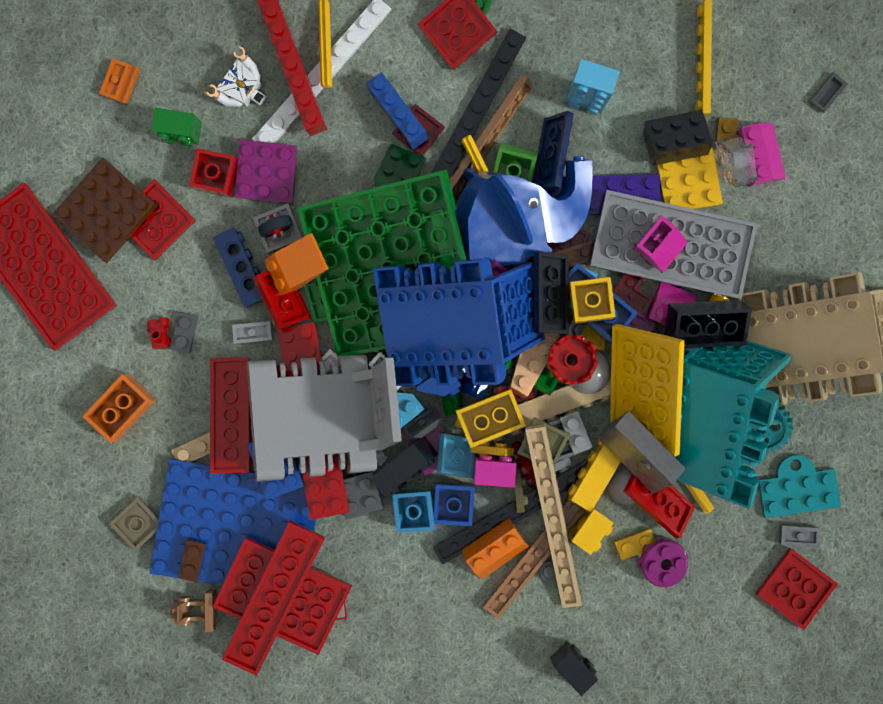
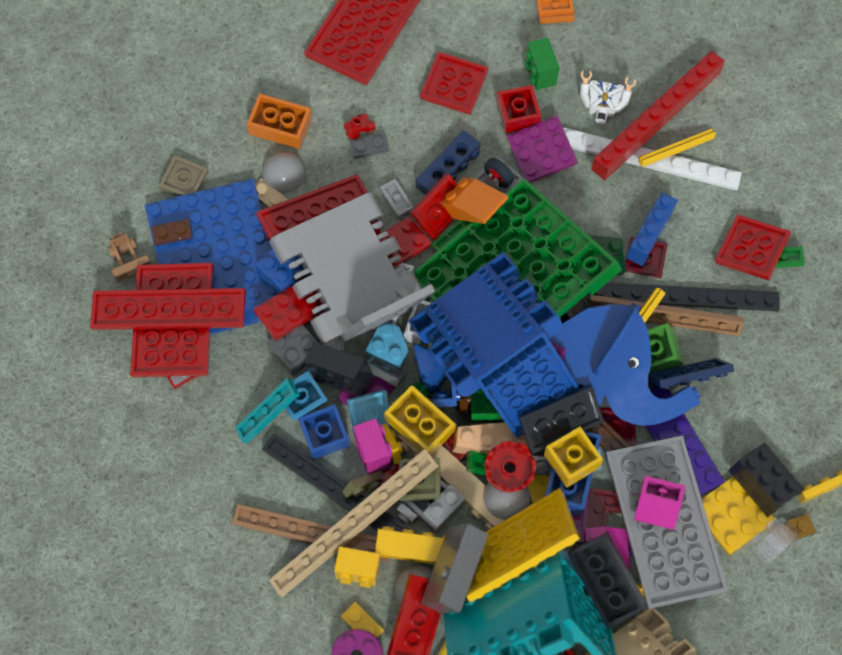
camera: 65 degrees right, 20 degrees down
(104, 210) = (442, 42): reddish brown plate -> none
(174, 425) = (283, 172): none -> light grey piece
(413, 547) = (267, 410): none -> teal plate
(494, 549) = (297, 490): orange slope -> none
(574, 669) = (216, 612): black brick -> none
(591, 87) = (765, 373): medium azure brick -> none
(766, 152) = (797, 569): dark pink slope -> none

